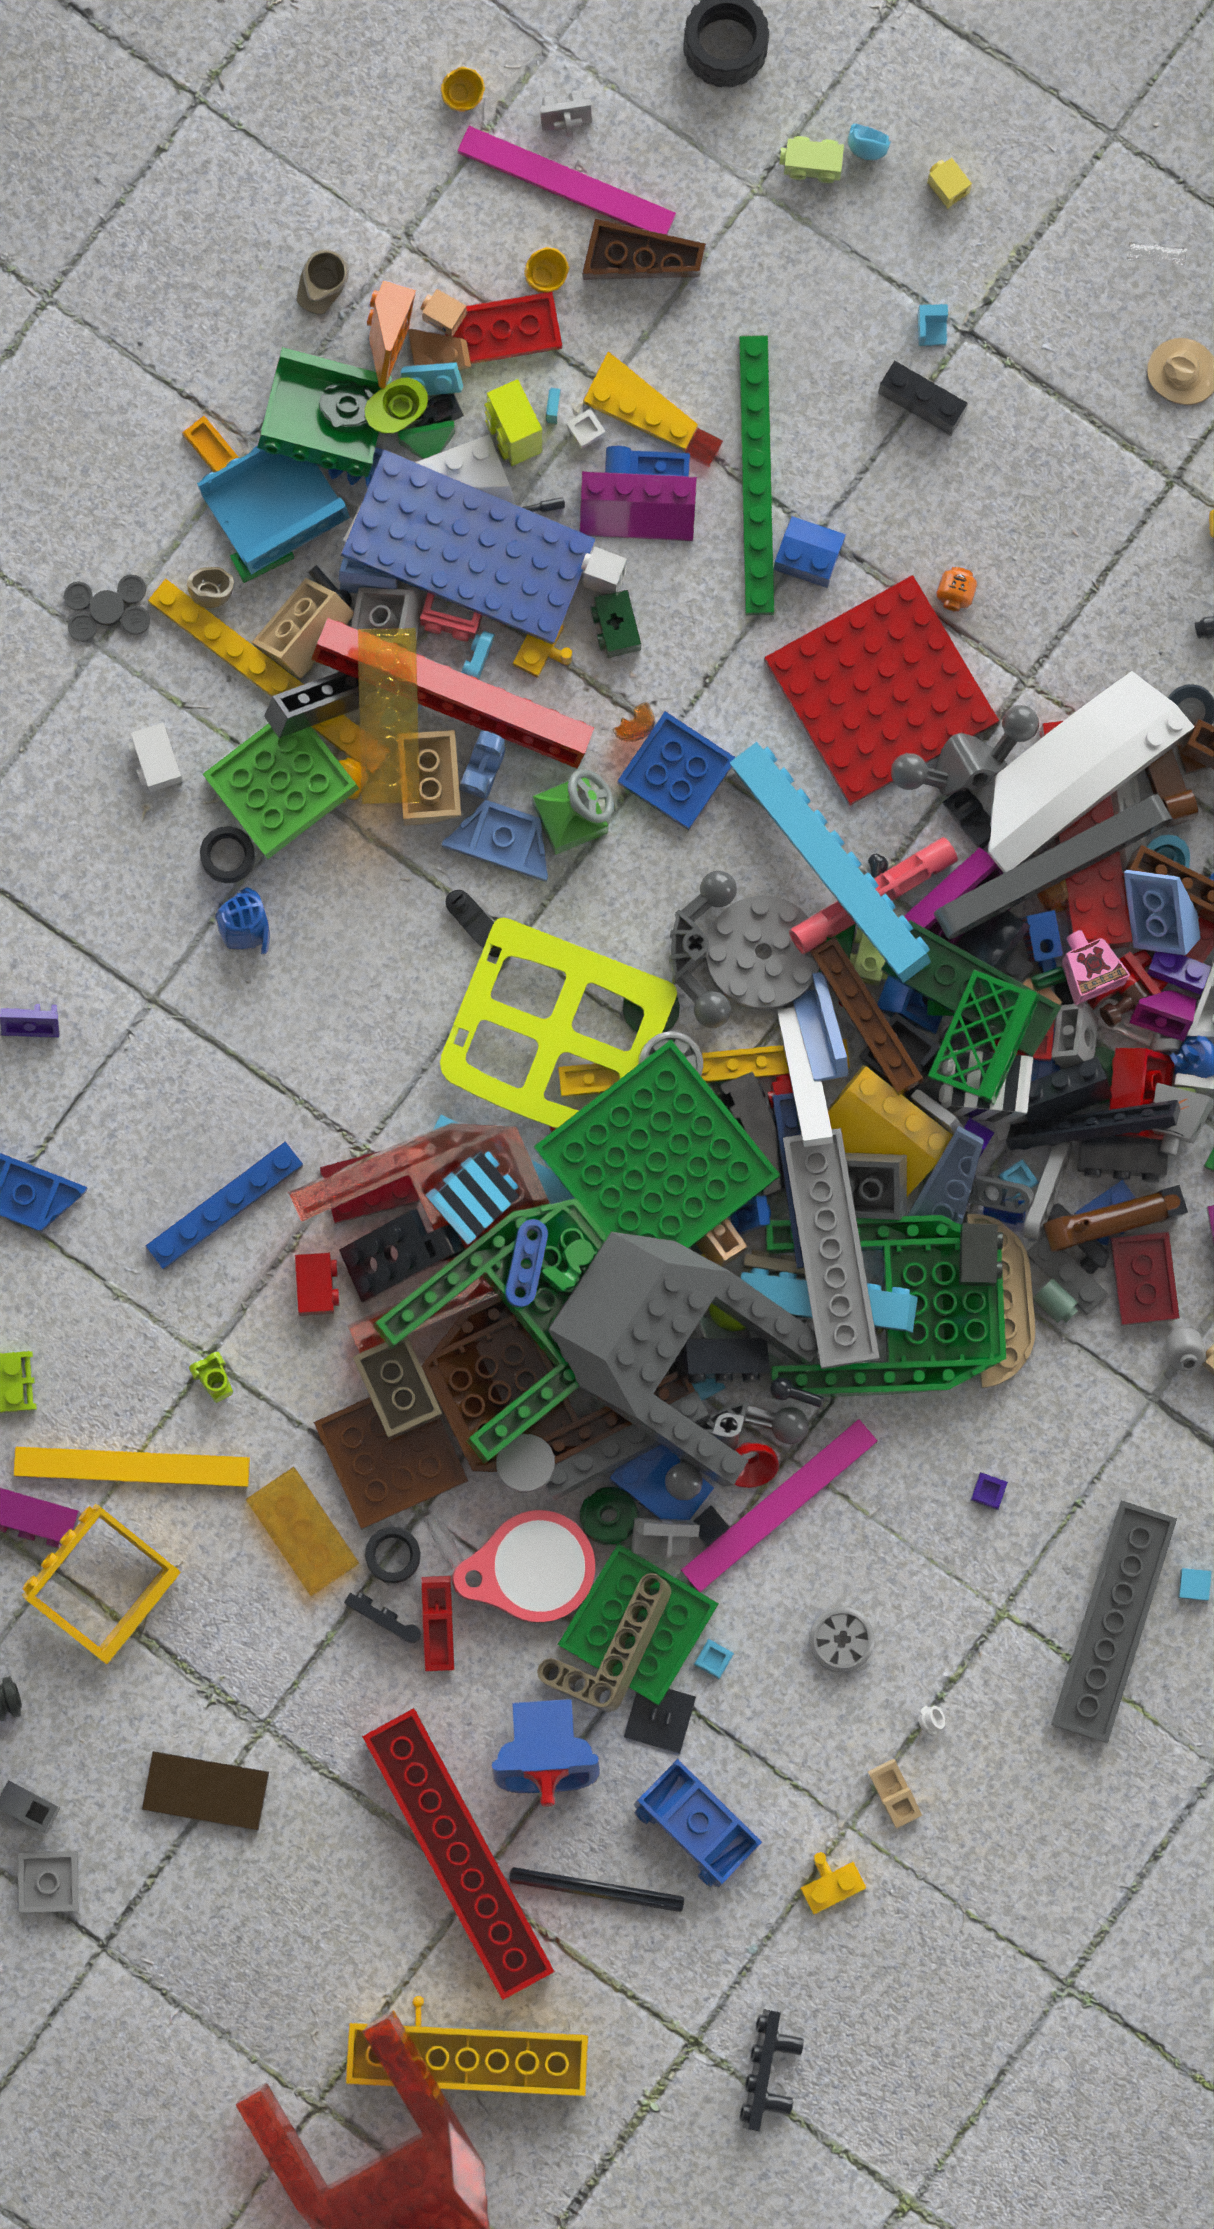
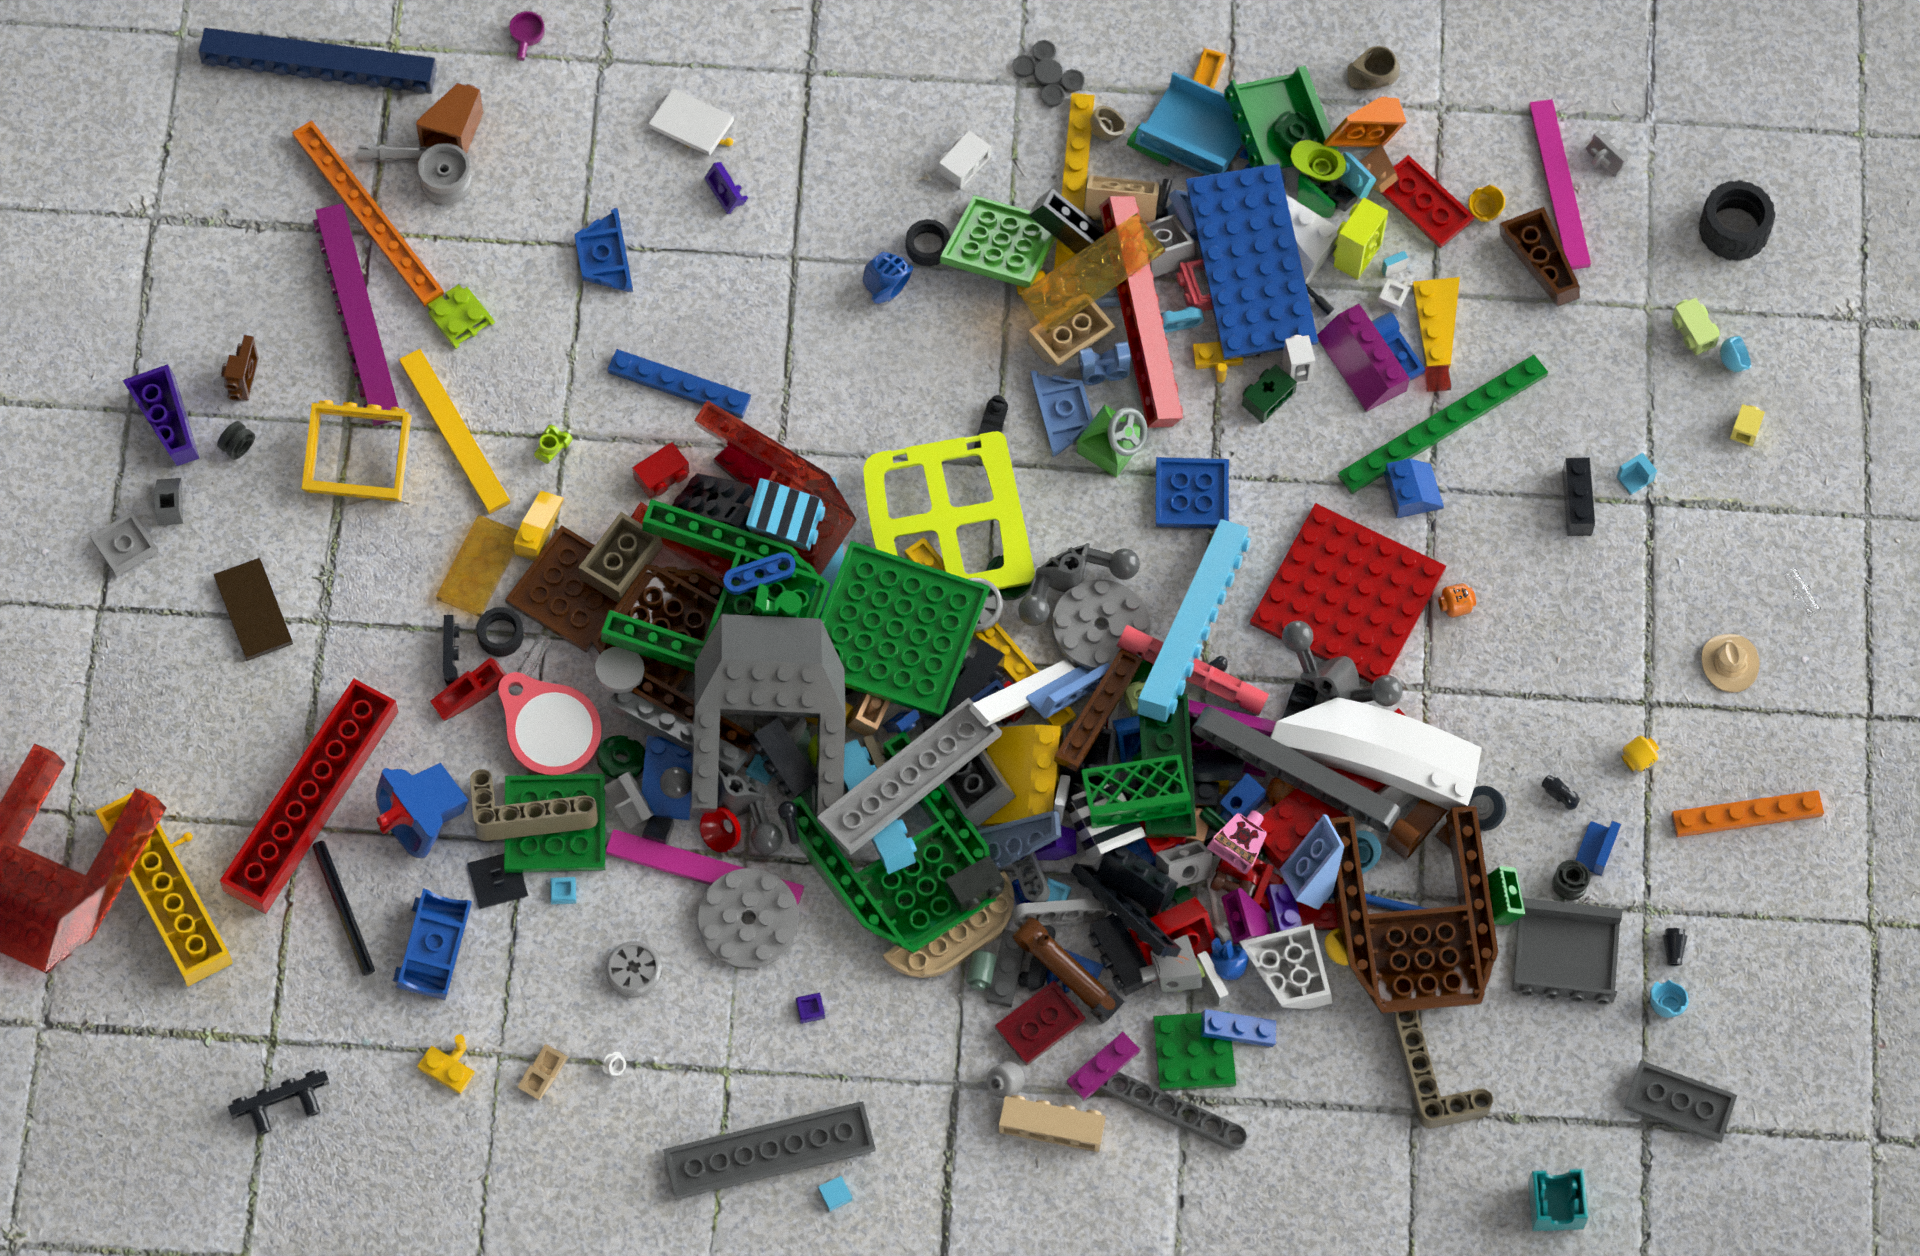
camera: 60 degrees right, 15 degrees down
(295, 1444) = (537, 525): none -> yellow slope
(443, 312) = (1406, 153): light nougat brick -> none
(462, 89) = (1573, 79): yellow hair -> none
(639, 726) = (1205, 447): clear orange hair -> none
(890, 1502) = (755, 943): none -> light grey plate

